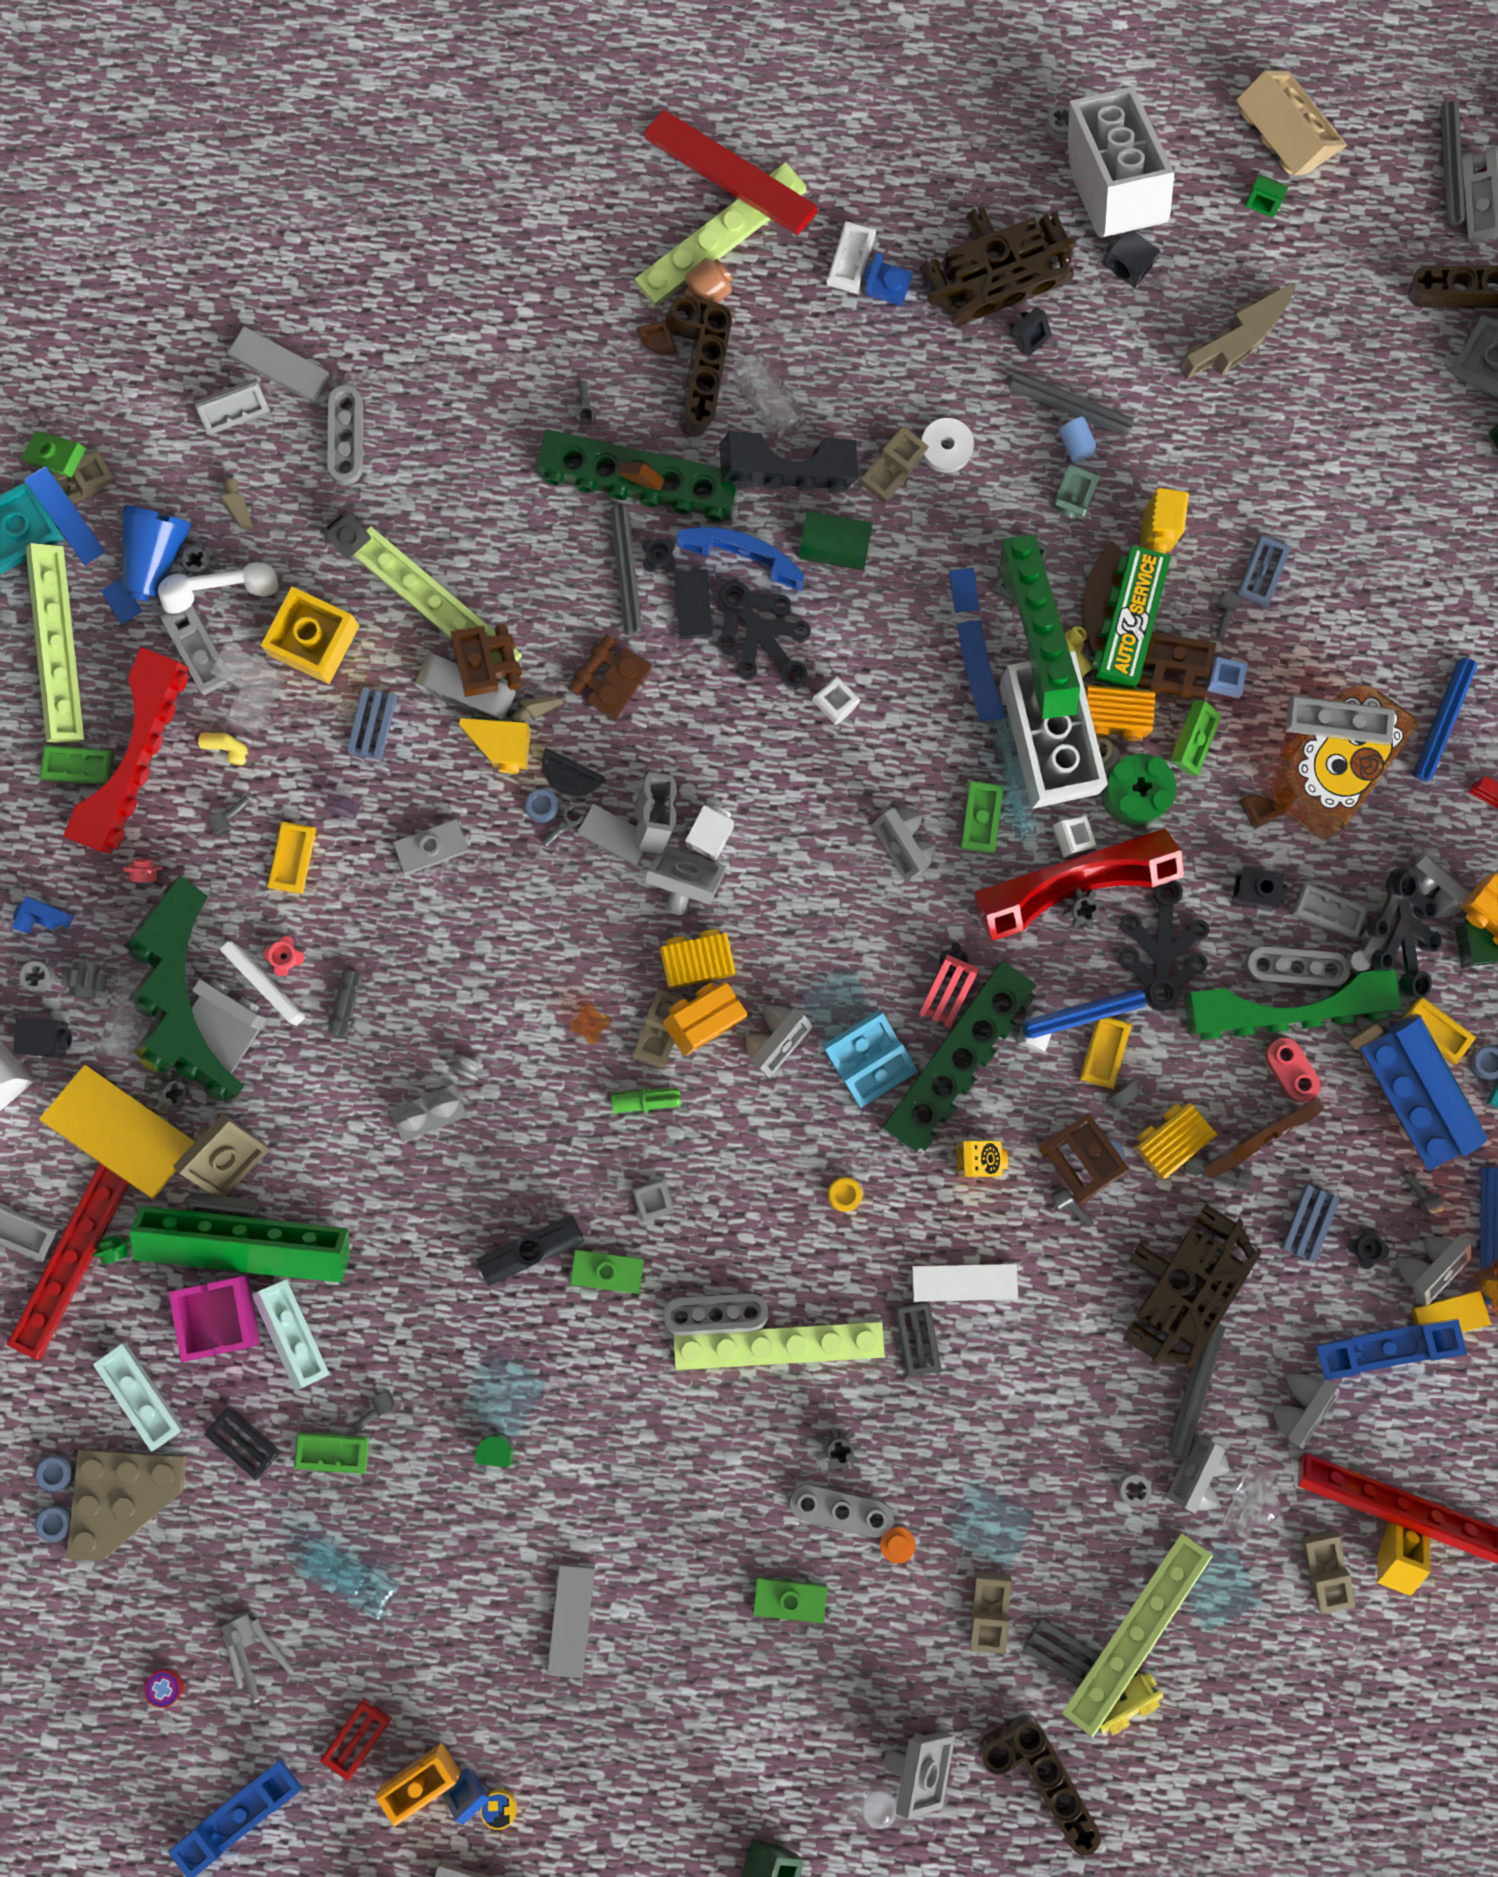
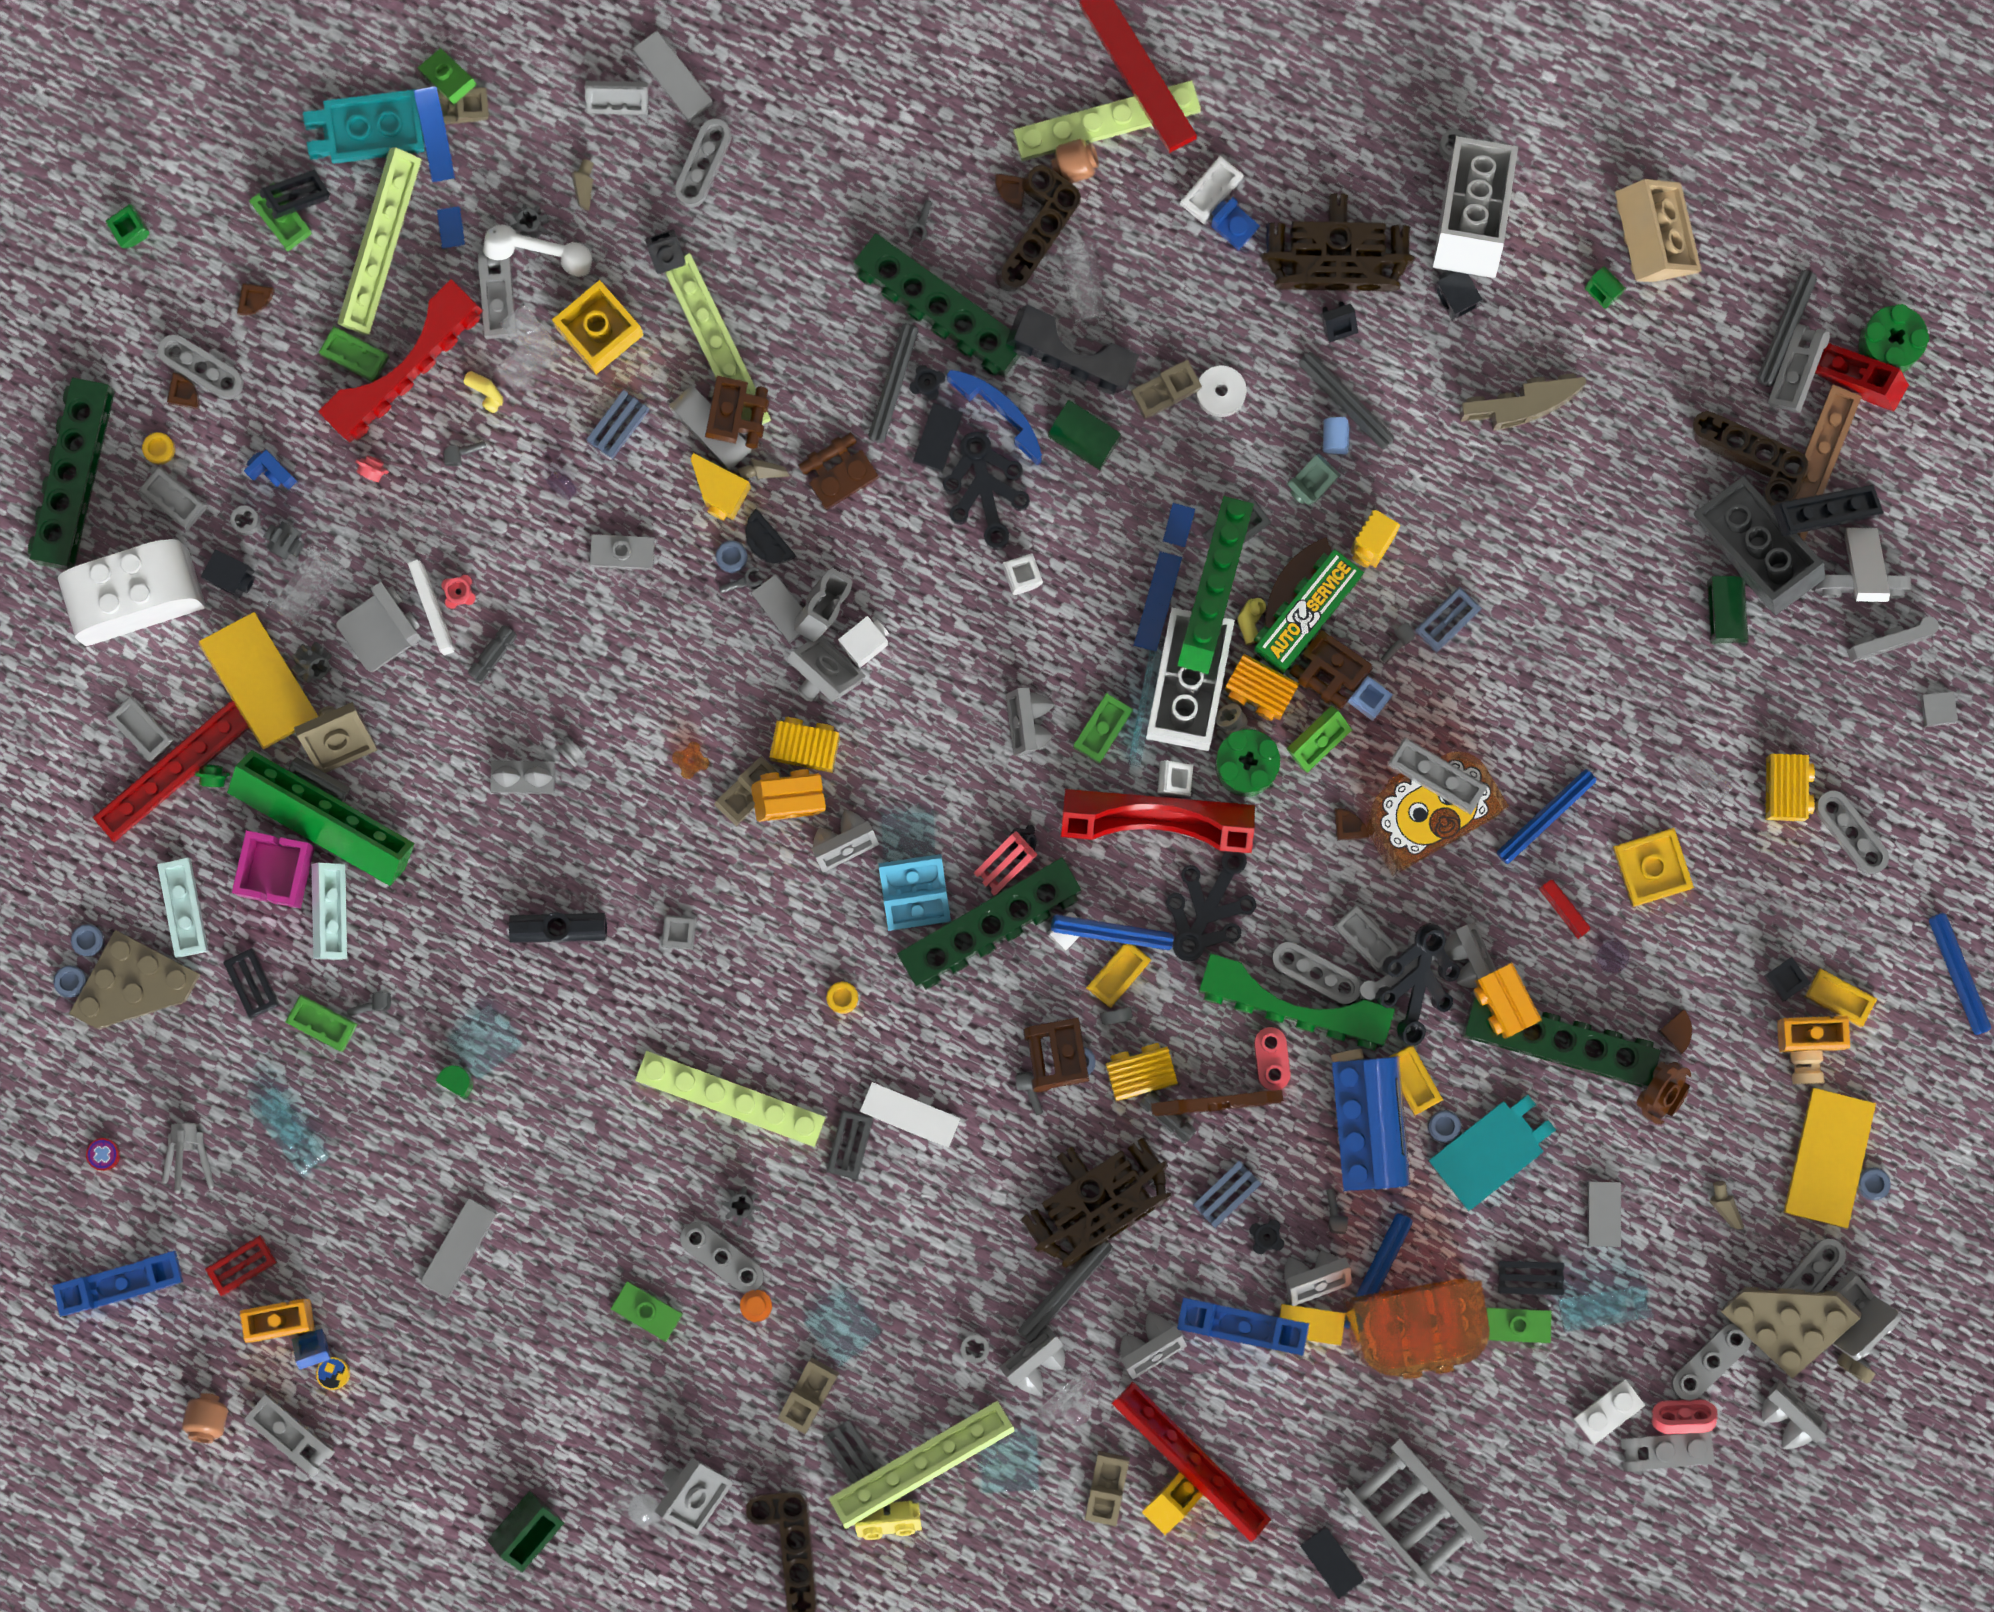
camera: 30 degrees right, 0 degrees up
(149, 549) = (493, 195): blue cone -> none
(162, 993) = (345, 579): dark green arch -> none
(291, 857) = (500, 510): yellow tile -> none
(607, 1271) = (614, 974): bright green plate -> none
(640, 474) = (938, 308): reddish brown tile -> none
(645, 1099) = (709, 844): bright green axle -> none
(700, 1308) = (678, 1039): light grey plate -> none
(980, 1159) = (969, 1016): yellow slope -> none
(1091, 912) = (1146, 849): dark grey gear -> none
(1259, 889) = (1313, 893): black brick -> none

